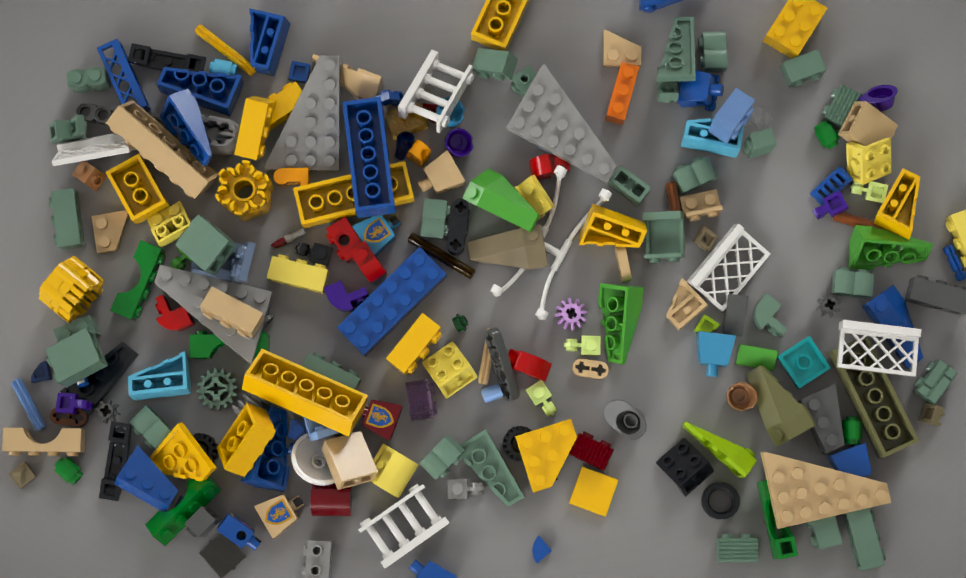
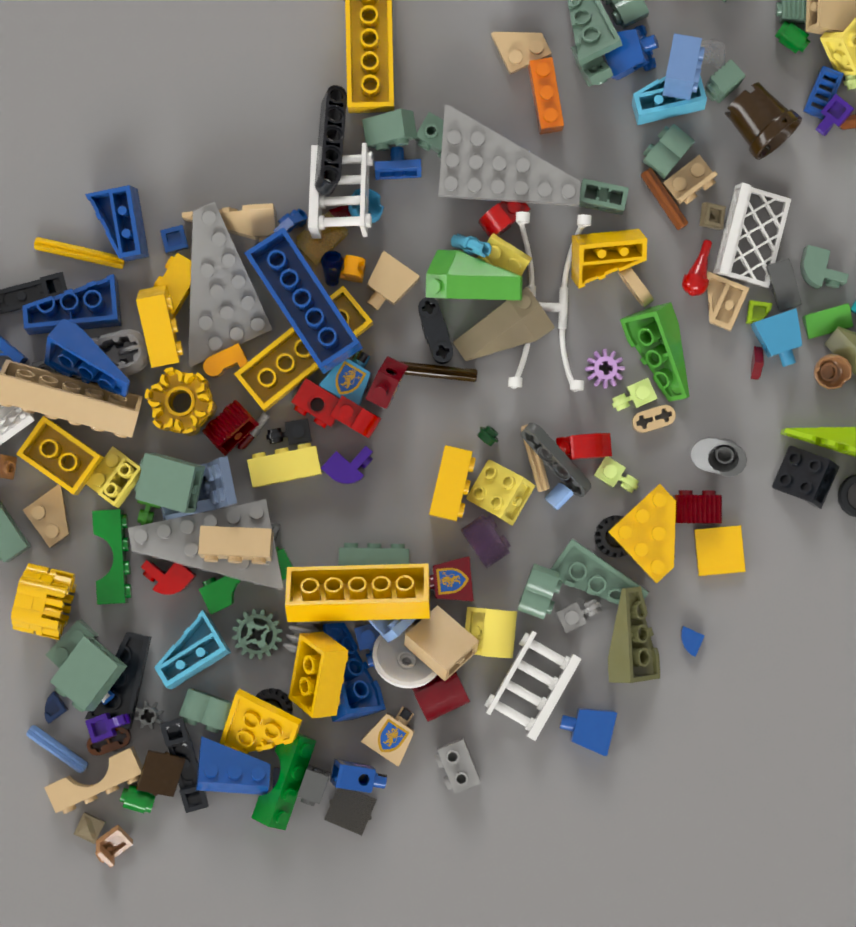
camera: 30 degrees left, 5 degrees up
(32, 495) = (112, 845): none -> medium nougat bracket
(94, 458) = (160, 773): none -> dark brown piece
(223, 66) = (87, 274): medium azure brick -> none
(272, 227) = (230, 427): none -> dark red brick
(392, 301) = (403, 447): blue brick -> none
(400, 249) = (386, 385): none -> dark red torso
(434, 219) = (405, 334): sand green brick -> none
(458, 142) = (391, 236): dark purple hair -> none
(461, 31) = (331, 149): none -> black beam
(488, 94) = (398, 167): none -> blue tile
(492, 532) = (631, 647): none -> olive wedge
(514, 176) = (471, 245): none -> medium azure pin
(665, 236) = (668, 234): sand green panel -> none
(670, 280) = (696, 281): none -> red piece
(687, 363) = (757, 363): none -> dark red tile
(774, 185) = (762, 120): none -> dark brown piece

